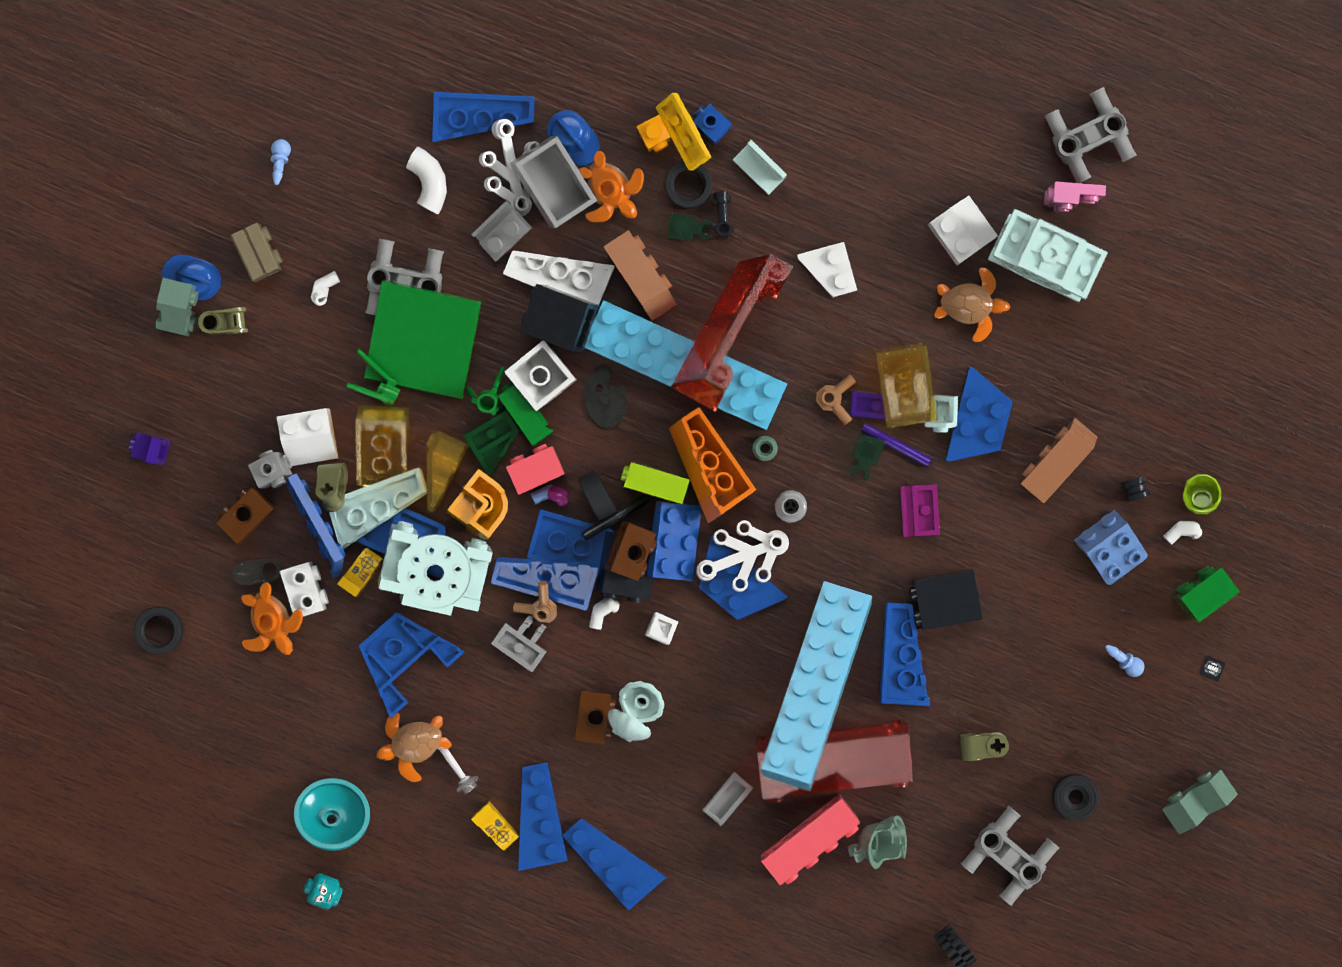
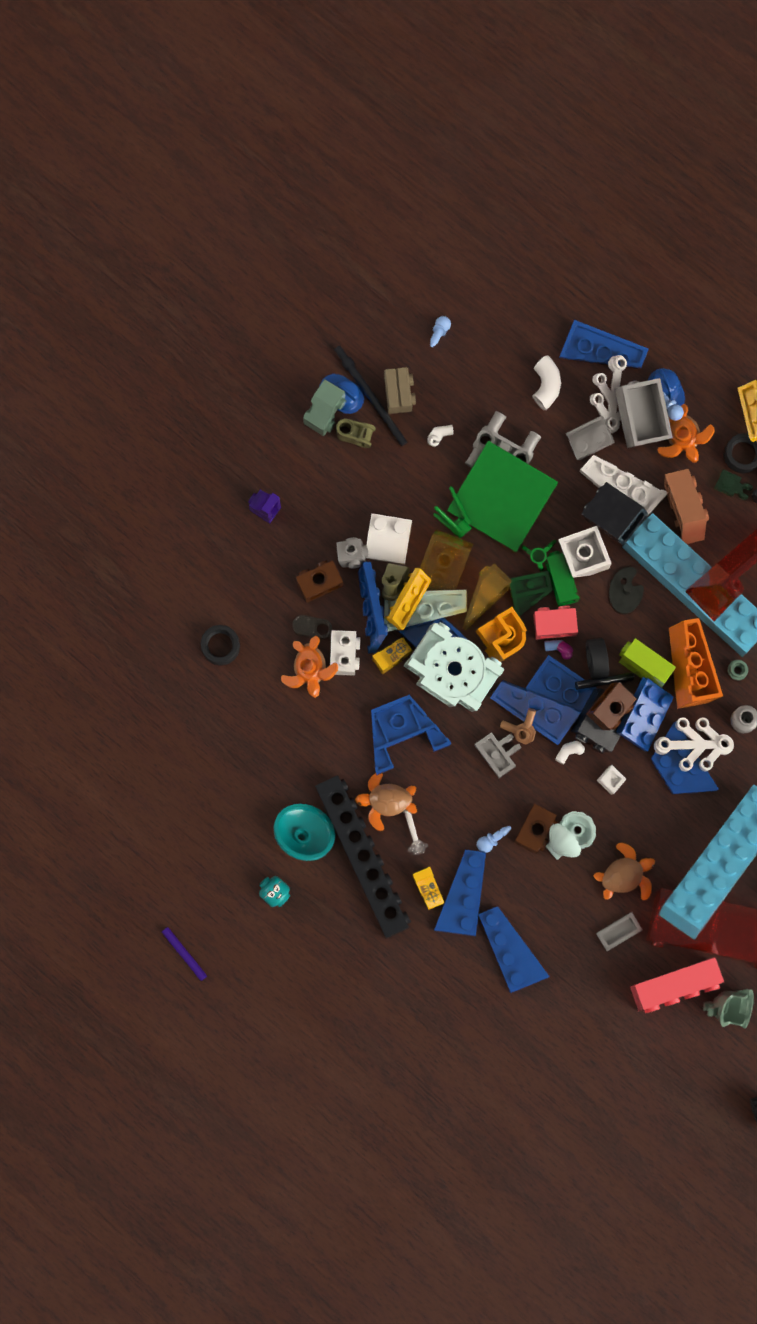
camera: 20 degrees right, 10 degrees down
(187, 240) = (349, 365): none -> black bar
(355, 504) = (408, 599): none -> yellow plate
(411, 831) = (326, 791): none -> black brick
(544, 751) = (487, 842): none -> light blue bar
(589, 165) = (674, 411): none -> light blue bar
(654, 134) = (730, 406): light orange brick -> none
(713, 731) = (626, 874): none -> animal

